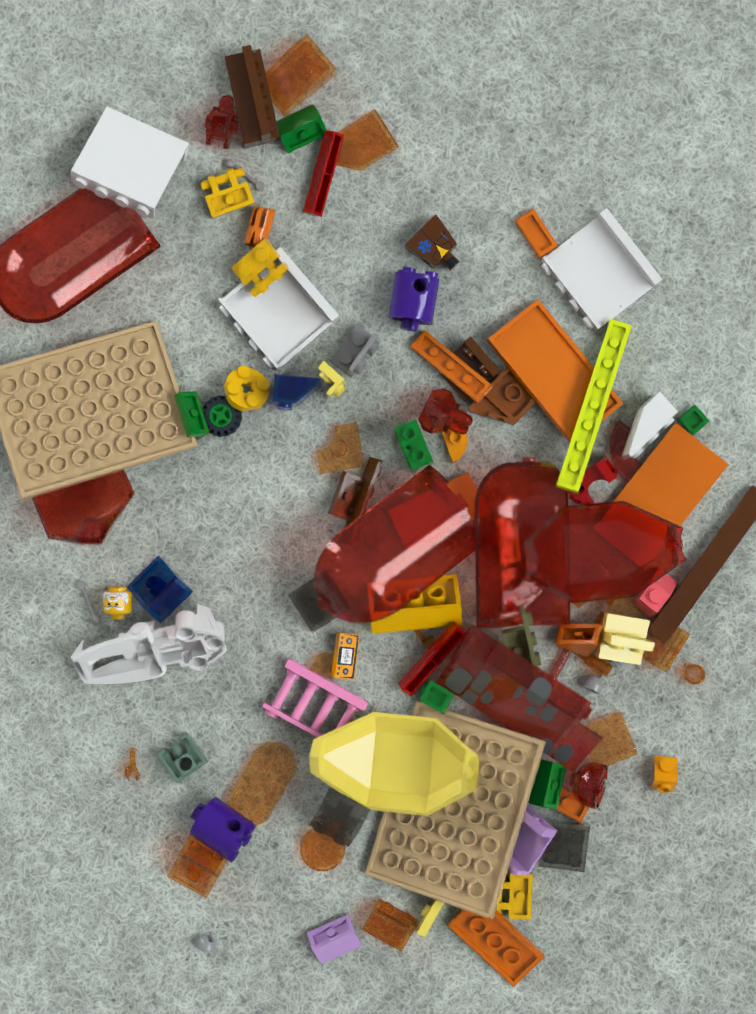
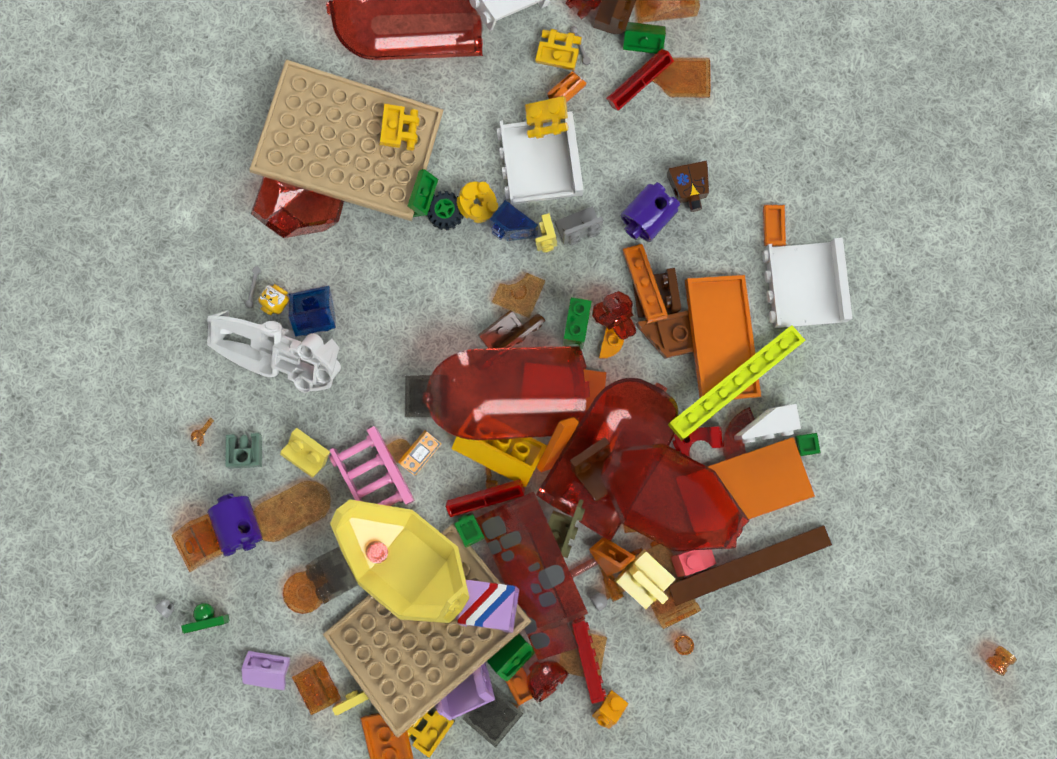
camera: 35 degrees right, 5 degrees down
(122, 369) = (392, 127): none -> yellow plate
(241, 723) = (305, 453): none -> light yellow bracket
(249, 929) = (204, 619): none -> green tile
(366, 770) = (376, 552): none -> clear red tile
(466, 568) = (557, 443): none -> orange tile
(501, 752) = (490, 606): none -> panel
(509, 570) = (588, 468): none -> reddish brown bracket
(619, 745) = (588, 662): none -> red piece

